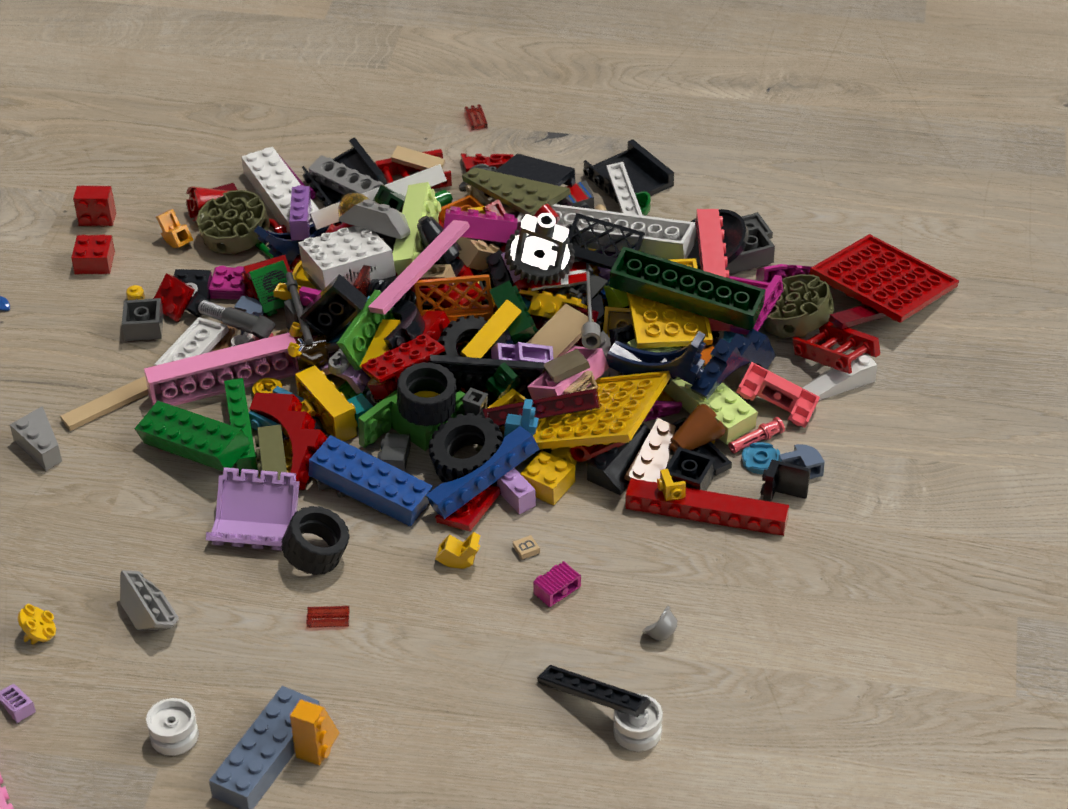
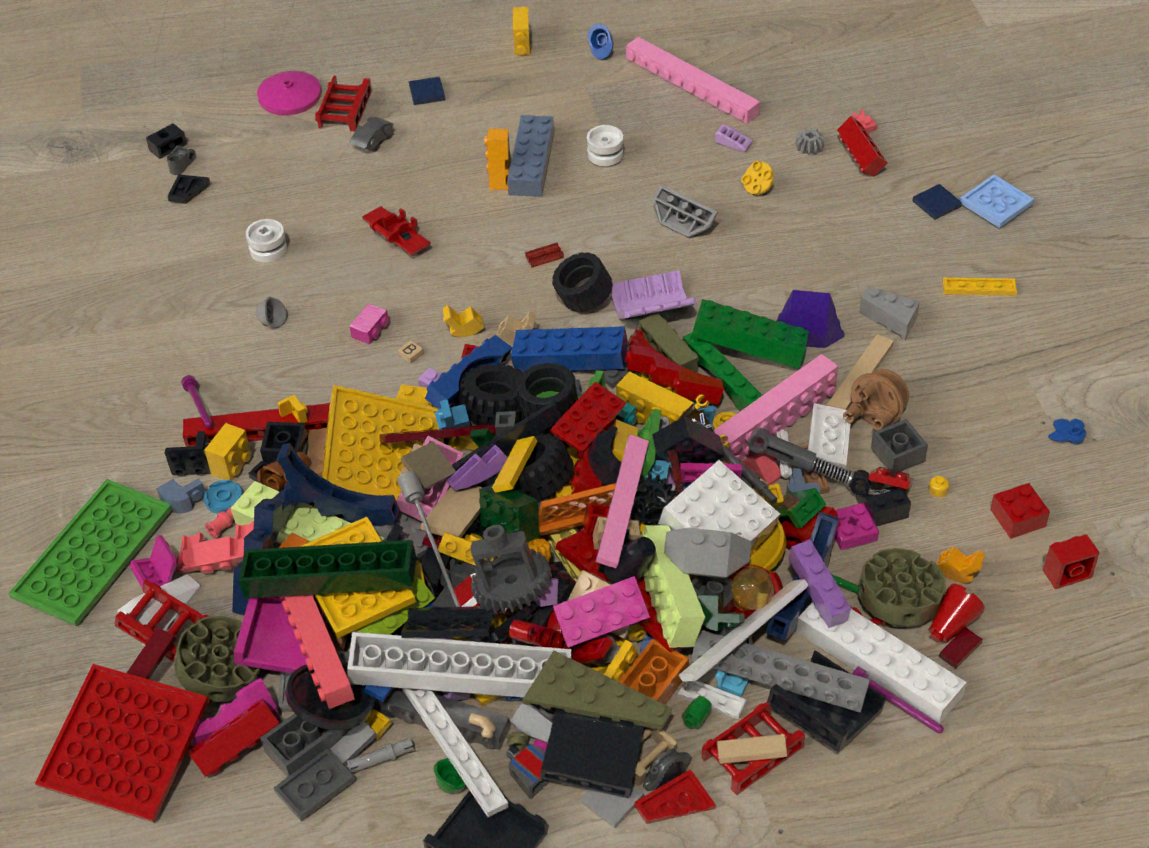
camera: 160 degrees right, 5 degrees up
(127, 436) = (814, 313): none -> dark purple wedge
(132, 336) = (878, 398): none -> medium nougat piece
(406, 527) = (509, 325): none -> tan brick
(472, 699) = (397, 229): none -> red piece
(594, 690) = (306, 242): black tile -> none
(745, 473) = (228, 452): none -> yellow brick
(770, 572) = (190, 384): none -> magenta piece
(793, 255) = (233, 738): none -> red brick
(841, 400) = (158, 567): none -> dark pink bracket
(895, 439) = (90, 552): none -> bright green plate

